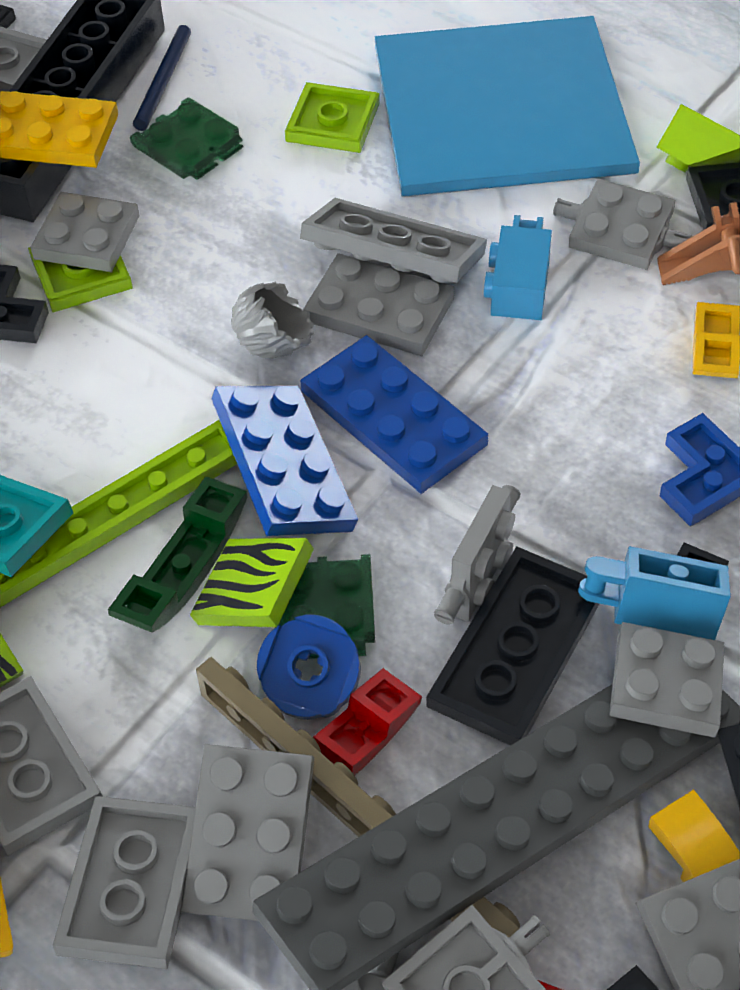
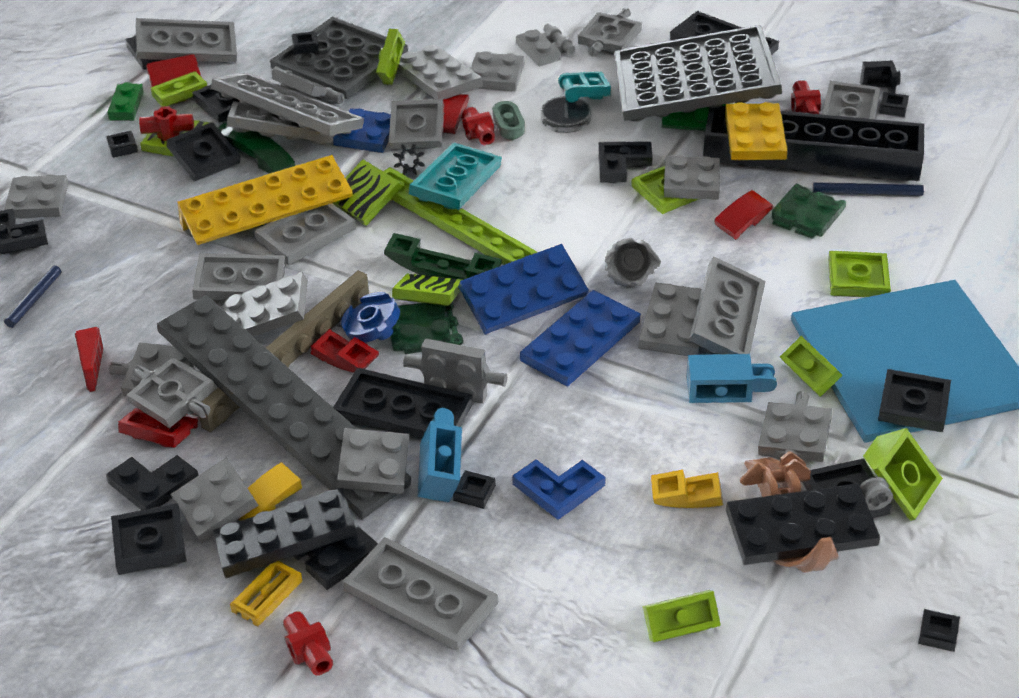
camera: 80 degrees right, 10 degrees down
(185, 195) = (742, 213): none -> red slope
(512, 184) = (811, 366): none -> lime plate
(601, 103) = (915, 400): none -> black plate

